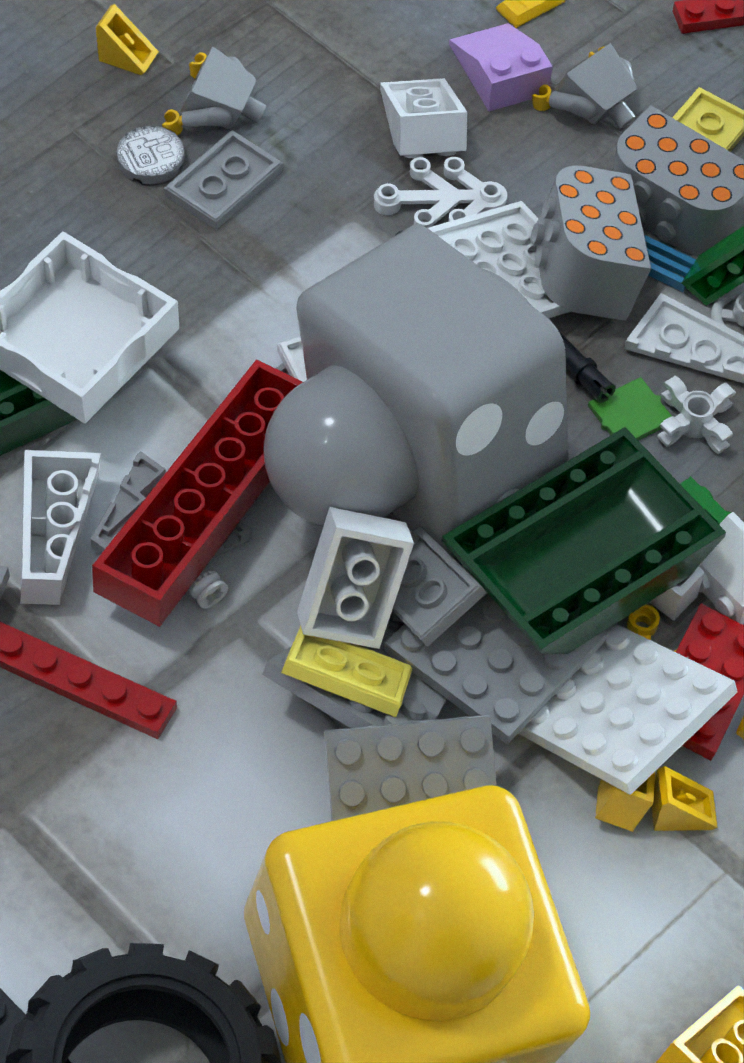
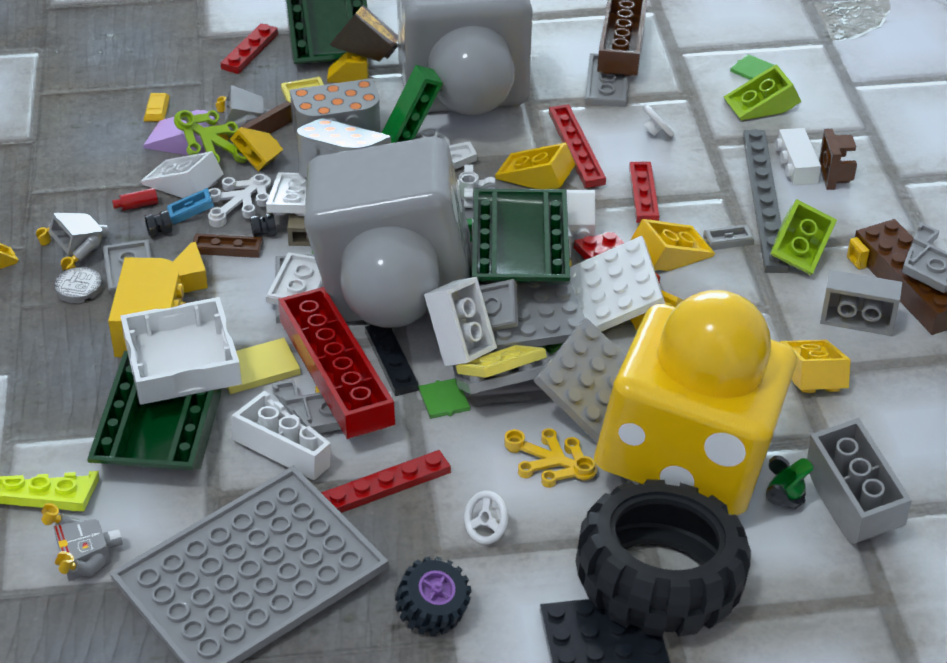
camera: 50 degrees left, 15 degrees down
(95, 833) = (492, 517): none -> white piece
(157, 232) = (143, 287): none -> yellow brick
(158, 412) = (265, 365): none -> light yellow tile
(258, 840) = (581, 467): none -> yellow plant
(264, 237) = (191, 269): none -> yellow slope
(269, 638) = (443, 398): none -> bright green piece
(283, 563) = (392, 360): none -> black plate
(316, 152) = (158, 223): none -> black wheel
(339, 232) = (228, 245): none -> reddish brown tile
(341, 102) = (136, 199): none -> red cylinder
(374, 162) = (190, 206): none -> dark azure tile
(502, 87) = (208, 134): none -> lime plant
(537, 149) = (256, 146): none -> yellow slope
(589, 124) = (271, 120): none -> reddish brown tile

